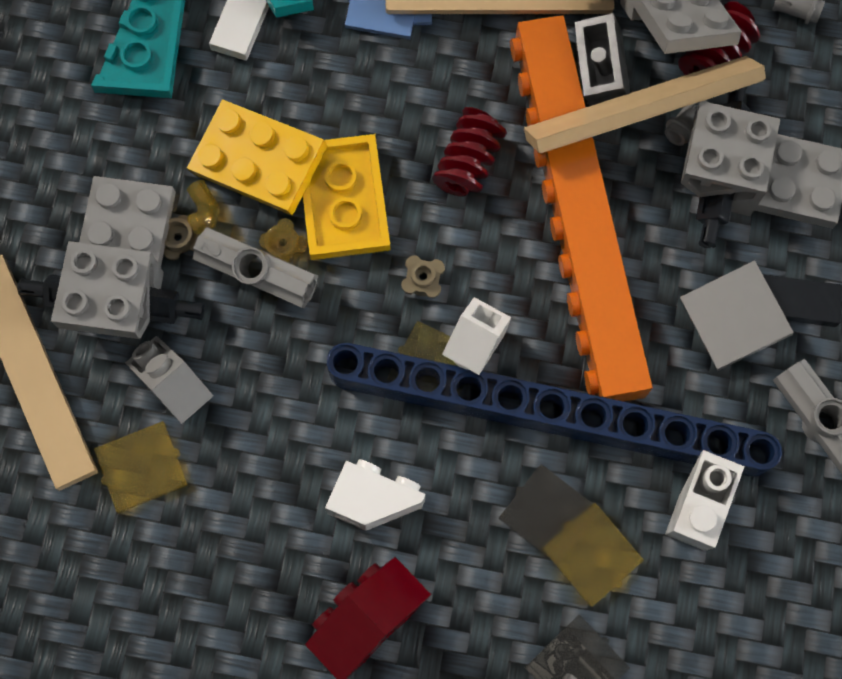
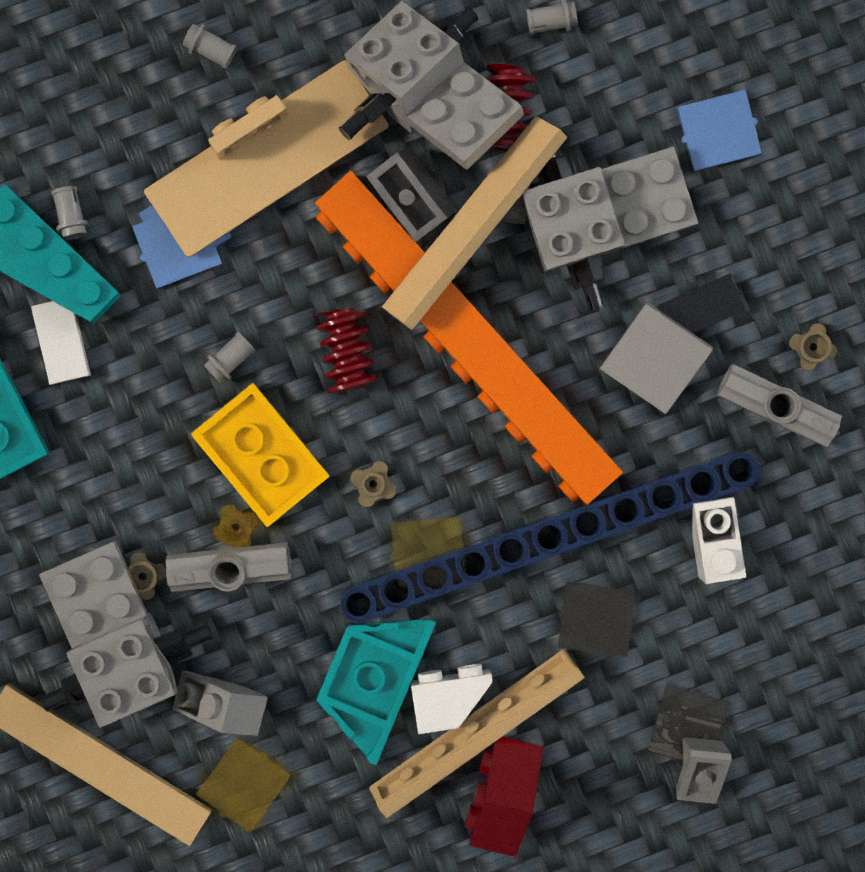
camera: 30 degrees left, 15 degrees up
(207, 207) = (152, 537): clear yellow arm -> none
(257, 157) = (164, 467): yellow plate -> none
(313, 440) = (372, 679): none -> teal wing
(368, 107) = (229, 357): none -> light grey pin
(376, 545) = (475, 733): none -> tan tile
(476, 336) = (454, 520): white slope -> none
(592, 554) = (650, 631): clear yellow piece -> none

